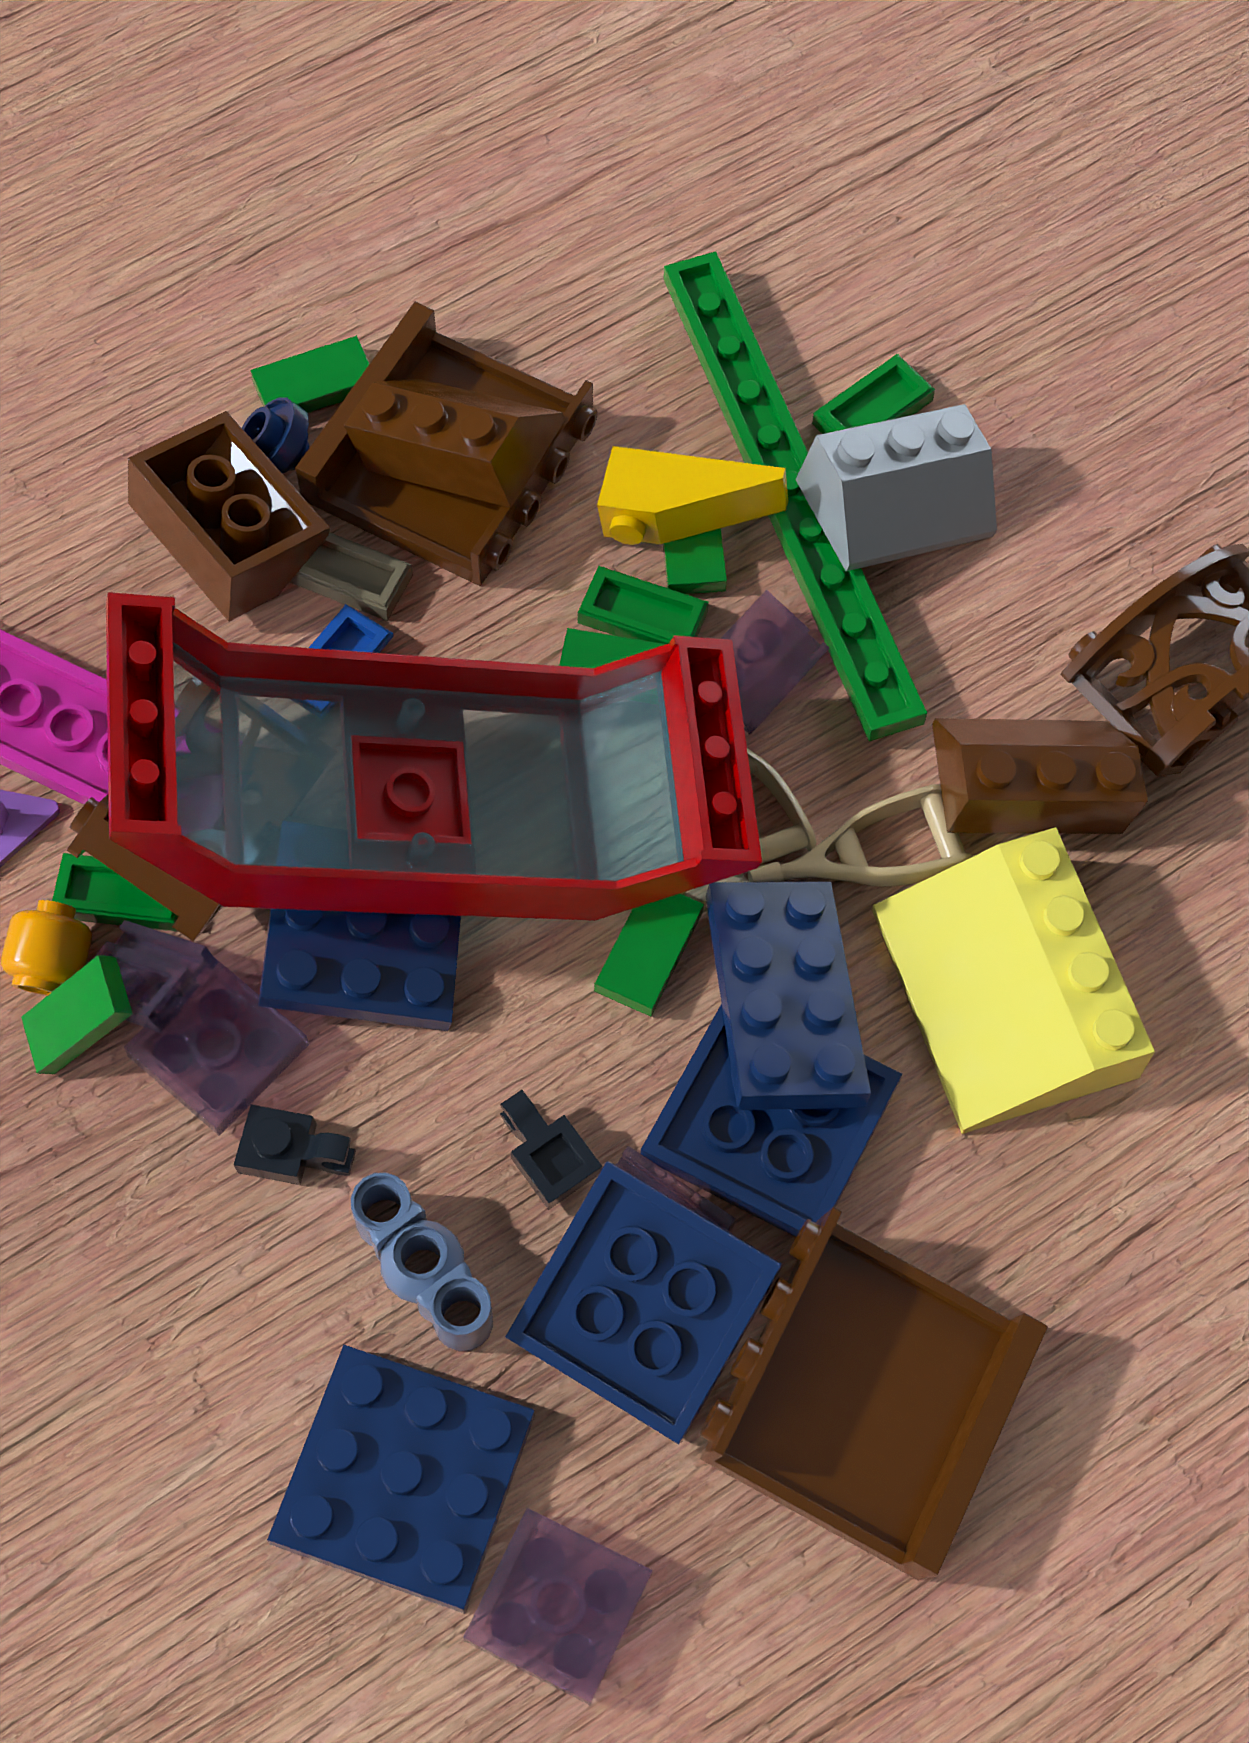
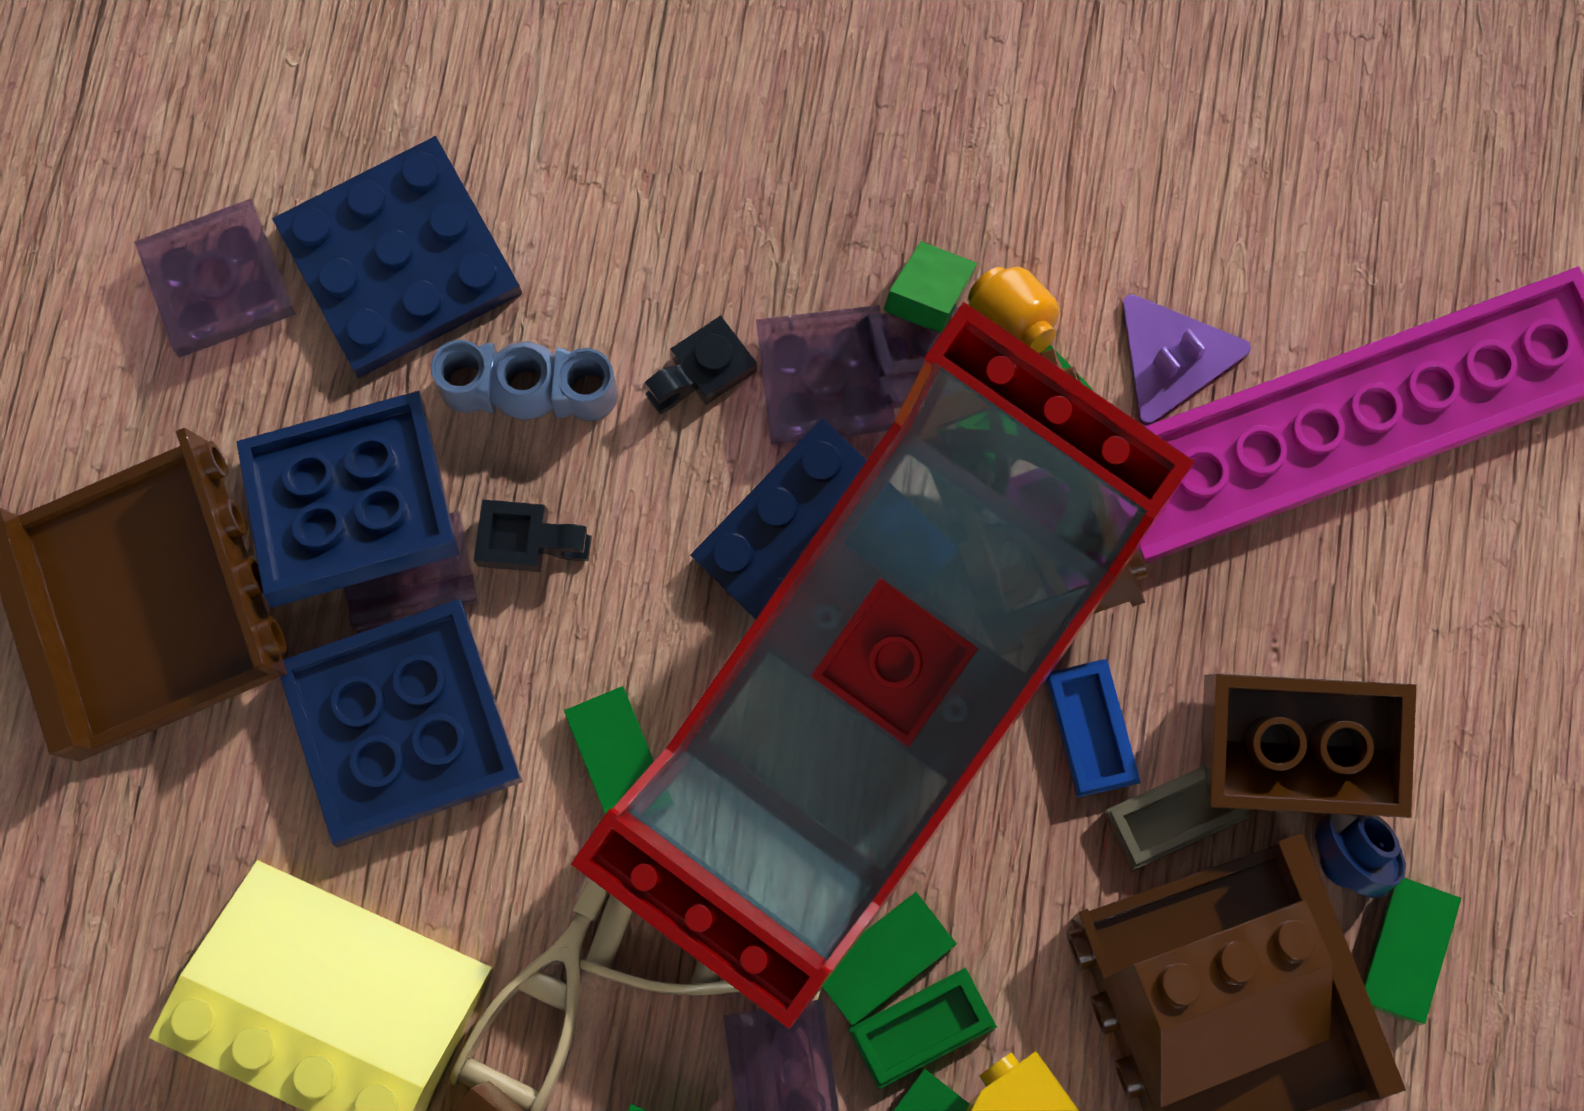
camera: 135 degrees right, 10 degrees up
(786, 996) = (468, 811): dark blue plate -> none

